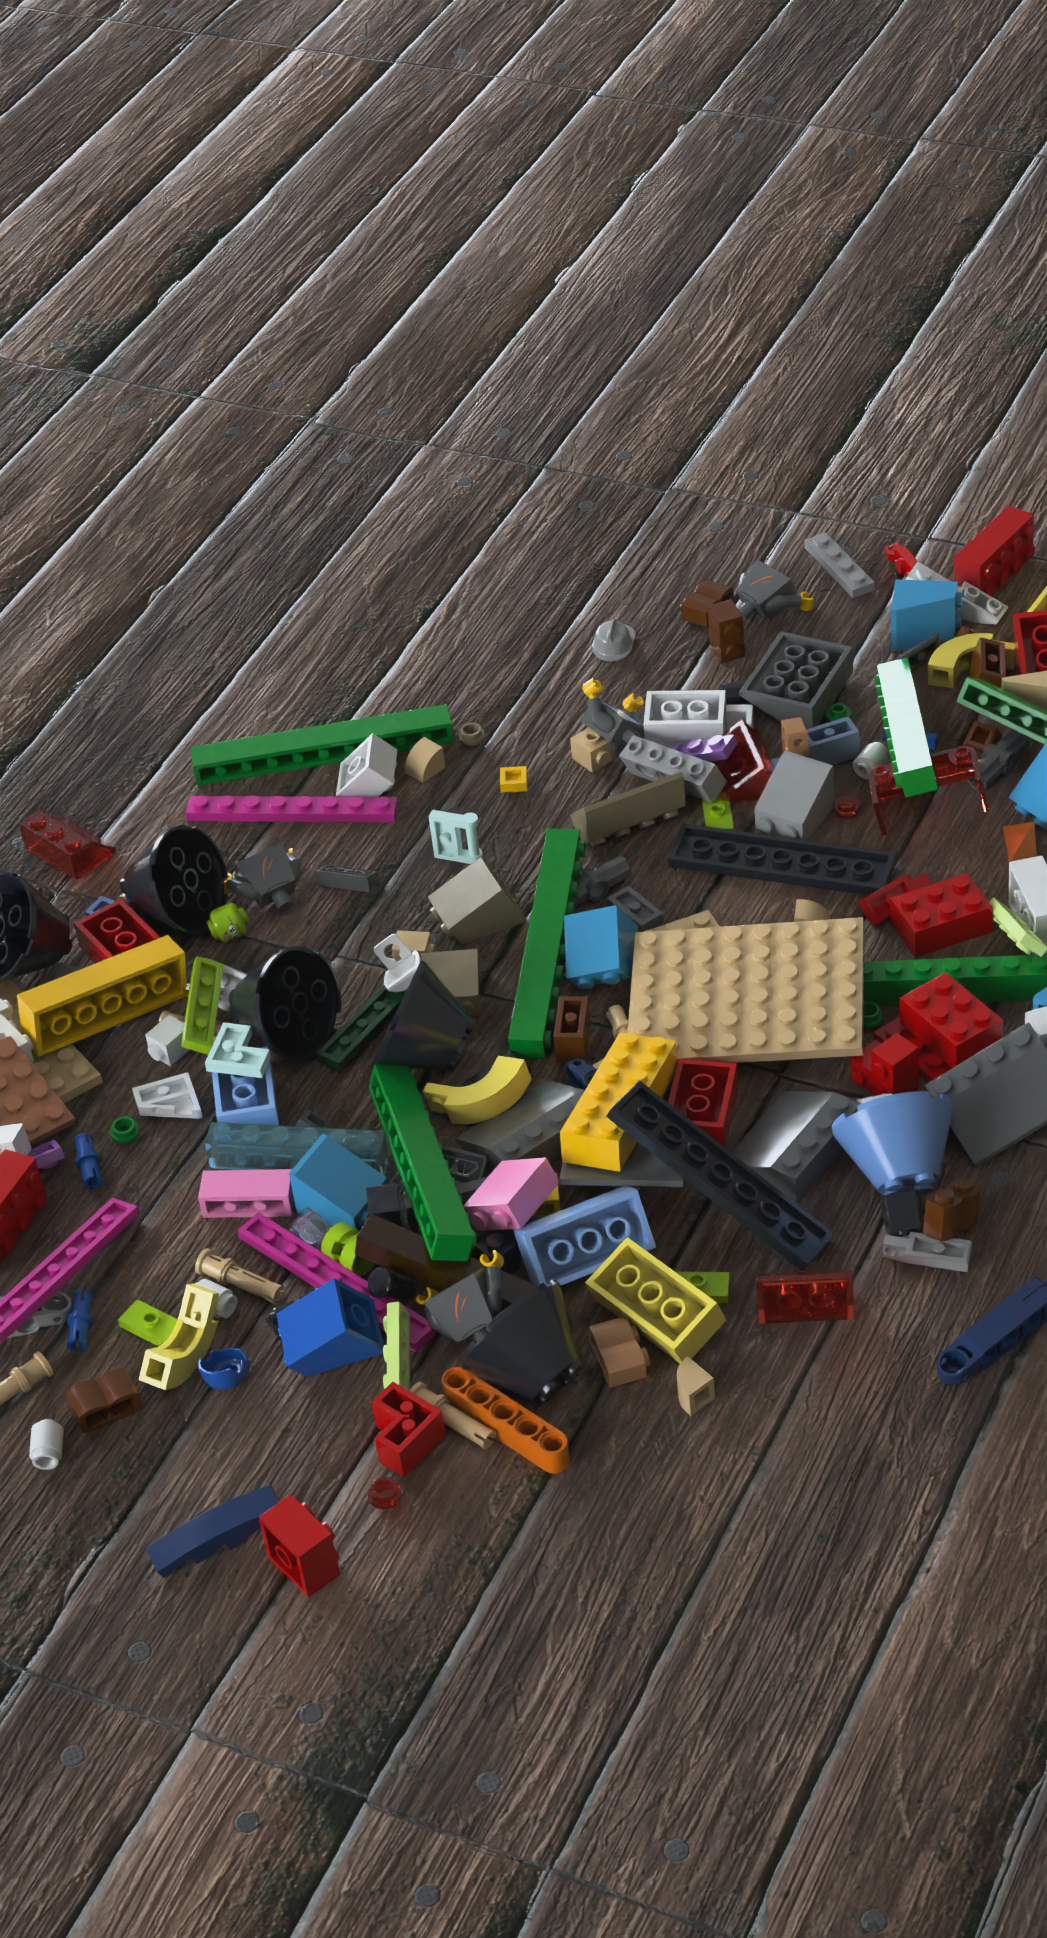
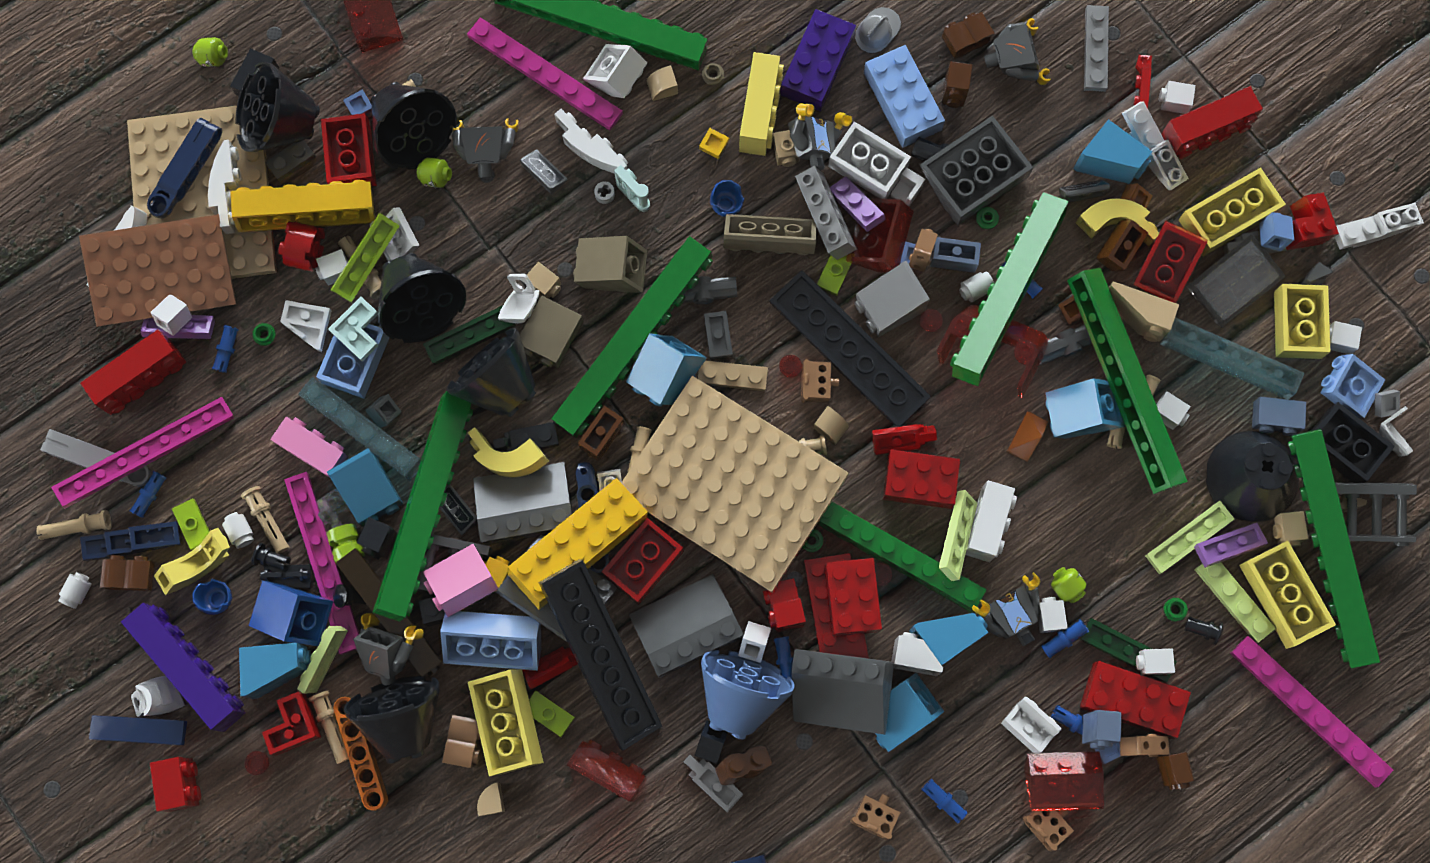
camera: 25 degrees right, 35 degrees up
(92, 1362) = (130, 541): none -> dark blue slope
(121, 1032) = (301, 245): none -> red brick
(216, 1486) = (156, 697): none -> white piece
(235, 1435) = (184, 667): none -> dark purple brick
(264, 1303) = (266, 556): none -> black pin
(341, 1383) = (270, 667): none -> dark azure slope
(388, 836) = (594, 150): none -> white slope
(421, 866) = (599, 188): none -> light grey bush
(540, 725) = (761, 104): none -> light yellow brick
(557, 807) = (726, 198): none -> blue hair
(567, 666) = (818, 59): none -> dark purple brick
(675, 1233) = (550, 666): none -> red hinge
(677, 662) = (903, 96): none -> light blue brick
(731, 899) = (790, 366): none -> clear red plate
(768, 897) = (809, 381): none -> medium nougat piece
(942, 557) = (1177, 97): none -> white brick

